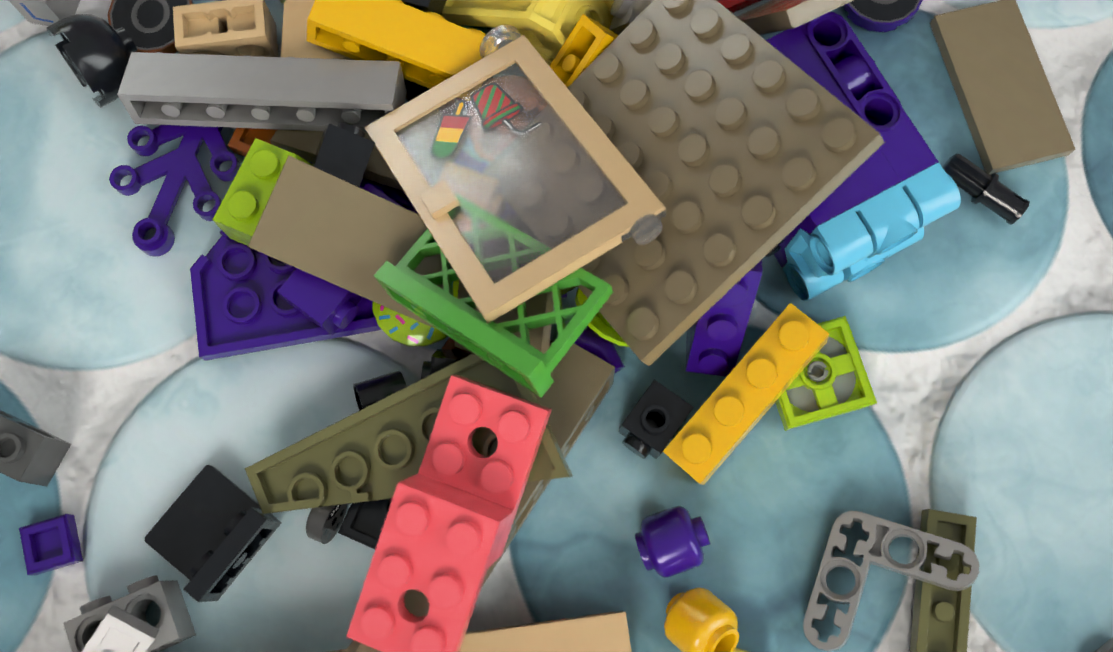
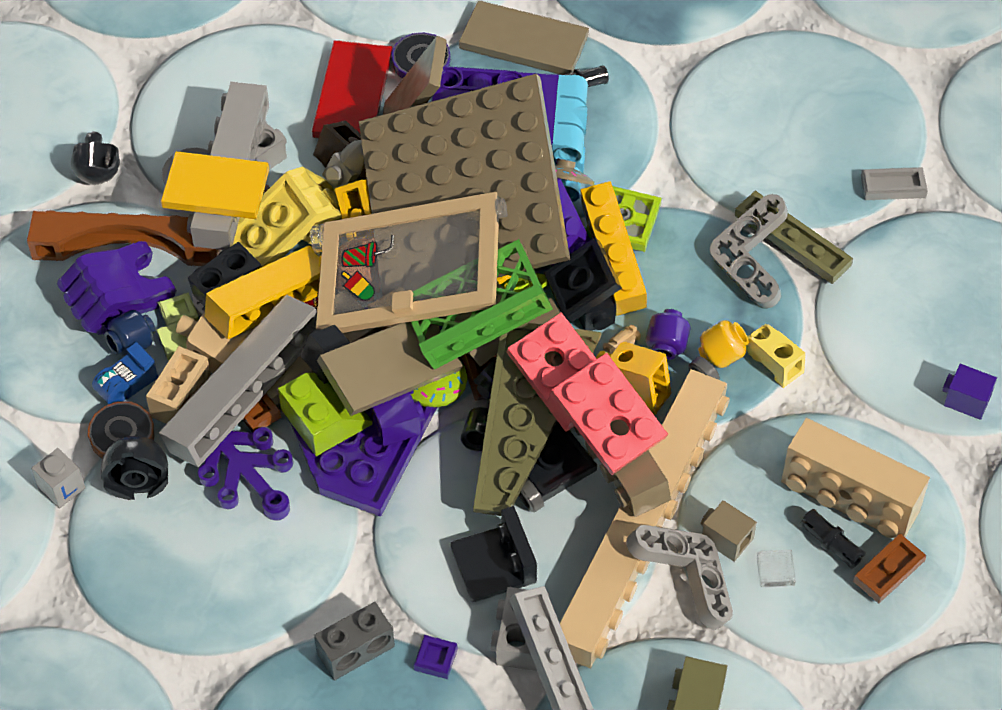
camera: 55 degrees left, 20 degrees down
(576, 556) = (645, 371): none -> yellow torso
(627, 487) = (628, 335): none -> tan piece
(644, 624) = (703, 366): none -> dark grey tile
(663, 398) = (582, 280): none -> black tile
(792, 275) = (566, 170): none -> dark tan dish

